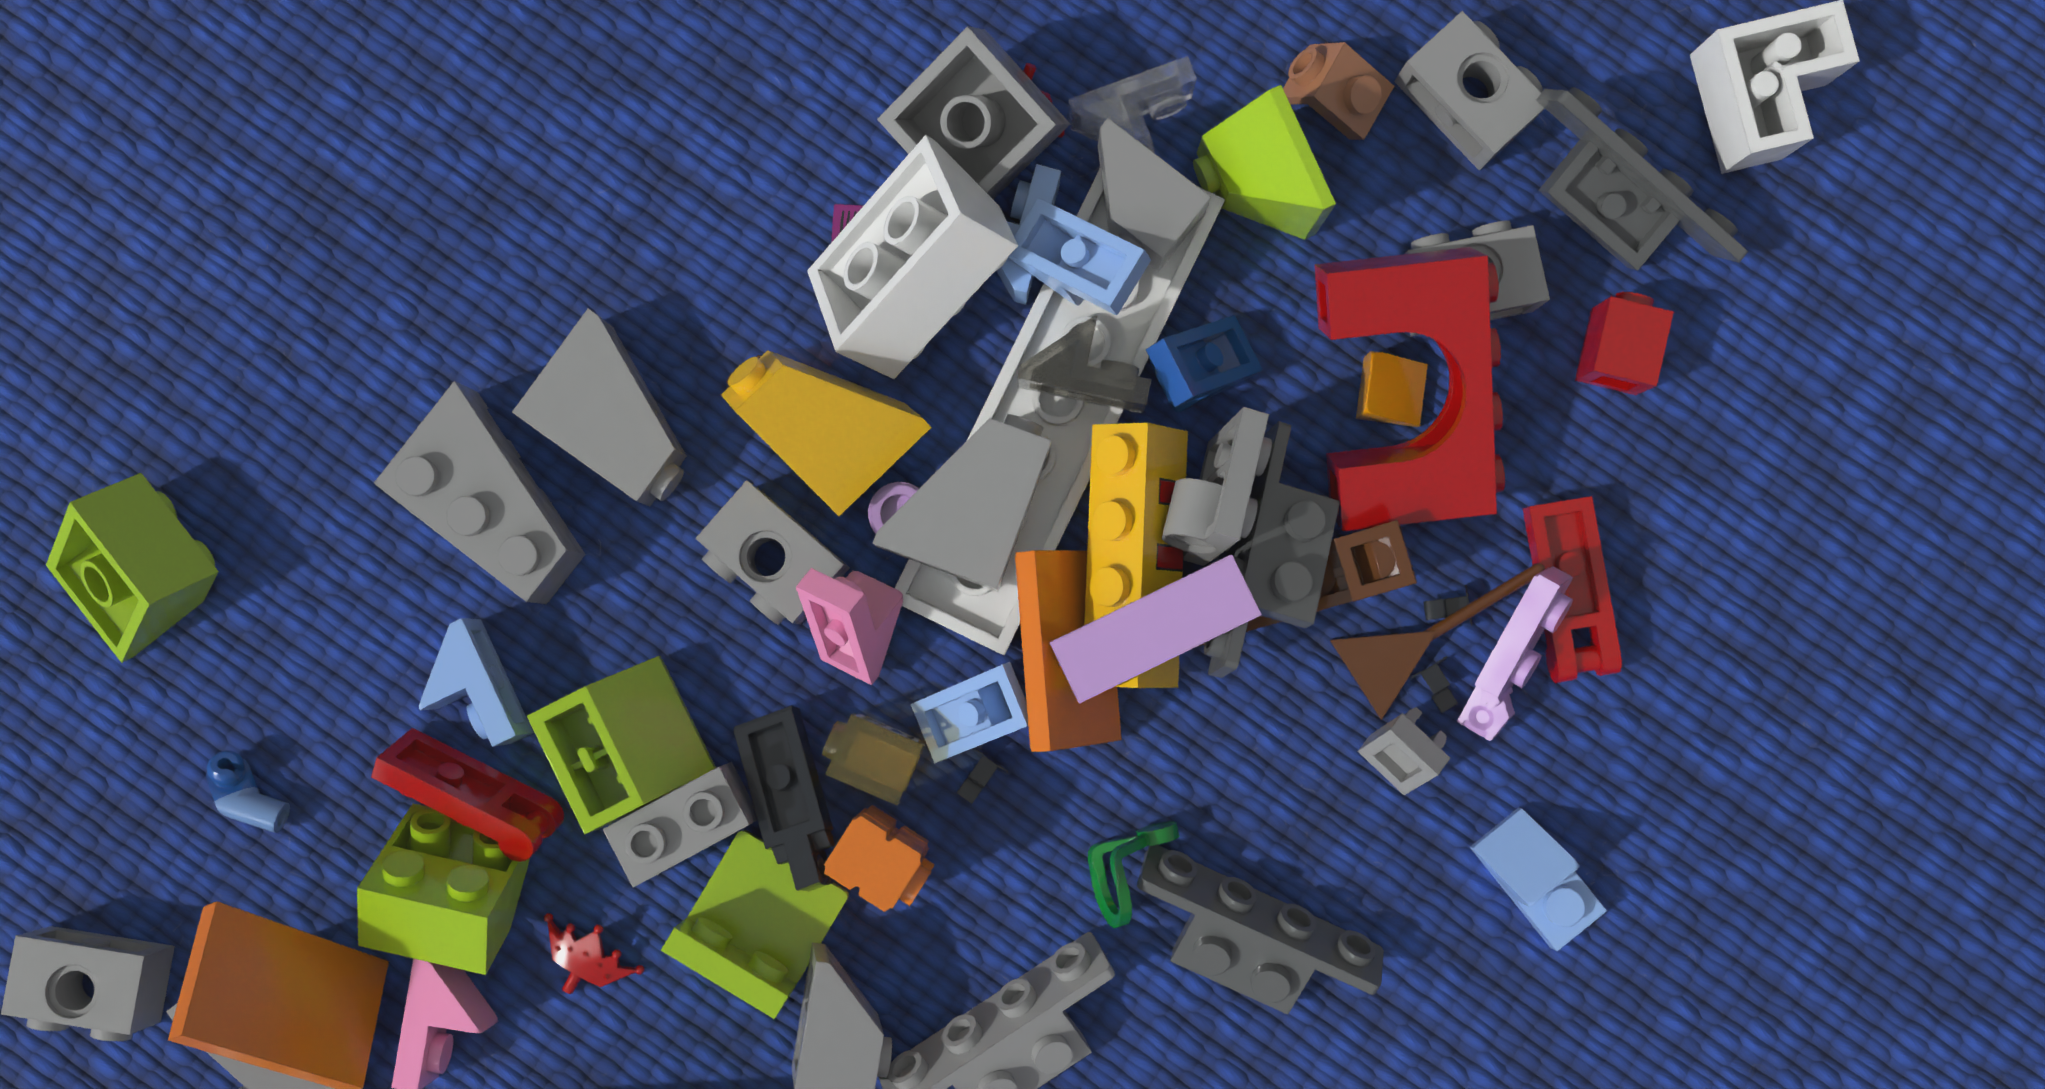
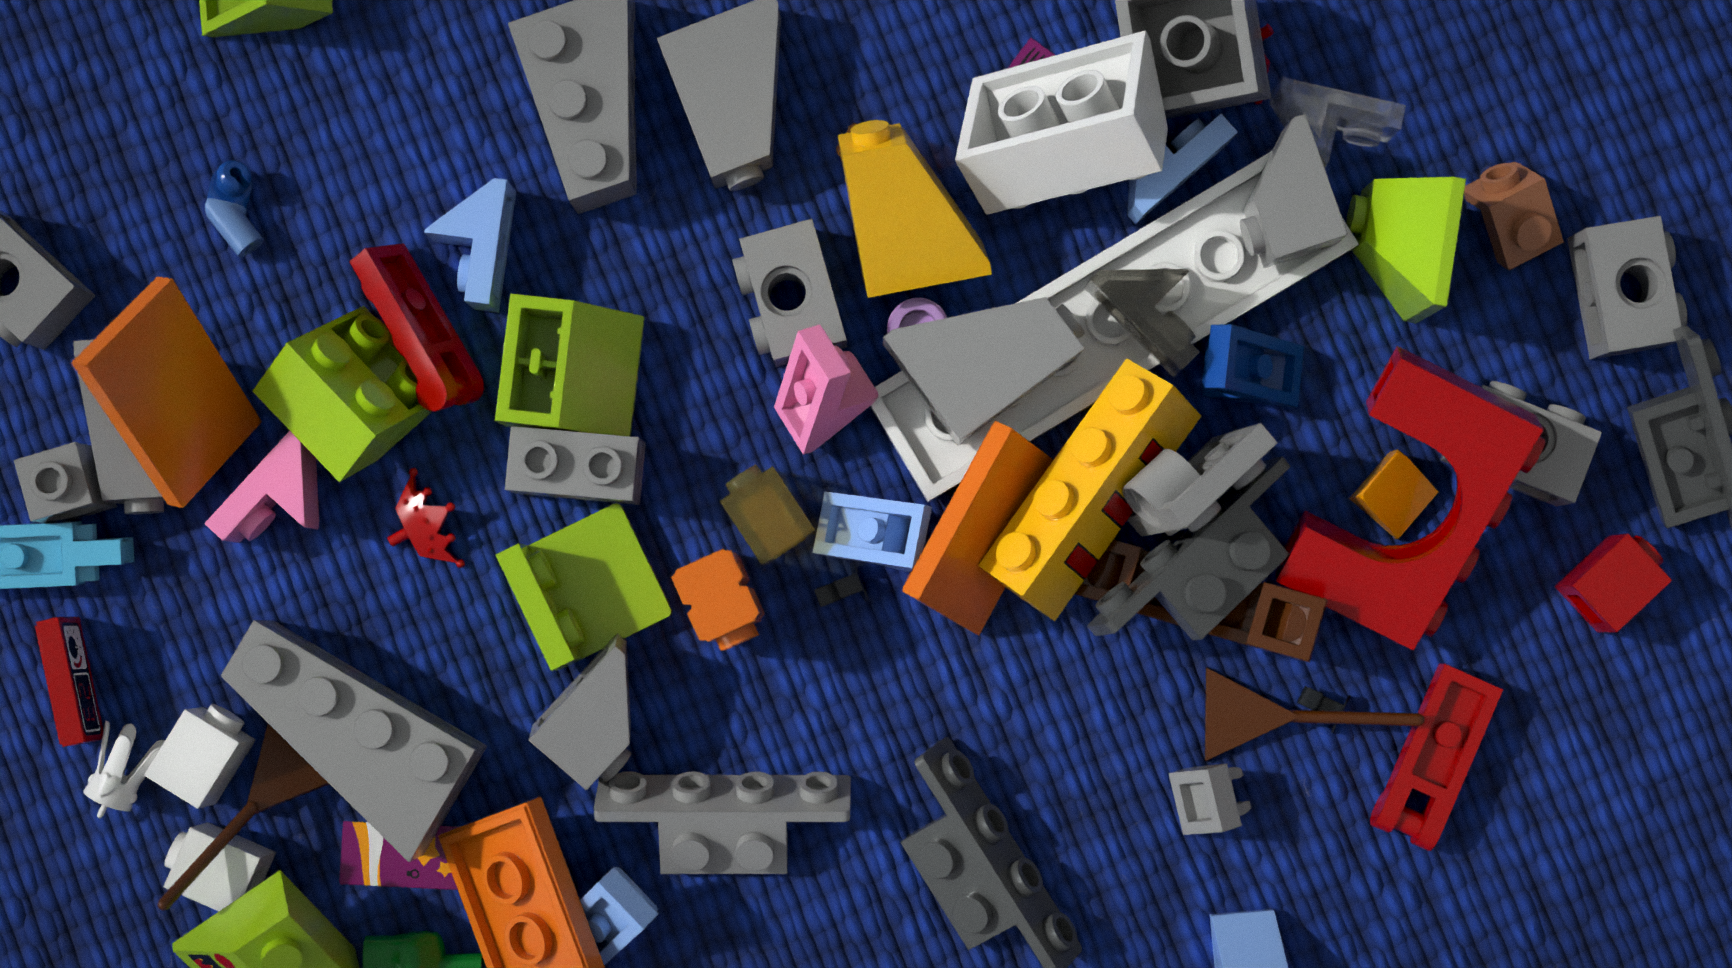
camera: 30 degrees right, 0 degrees up
(787, 794) = (676, 498): black hinge -> none
(1078, 257) = (1204, 213): light blue slope -> none
(1121, 847) = (917, 721): green piece -> none
(1155, 628) = (1069, 556): lavender tile -> none
(1439, 686) = (1271, 763): black piece -> none
(1513, 656) = (1350, 776): lavender hinge -> none

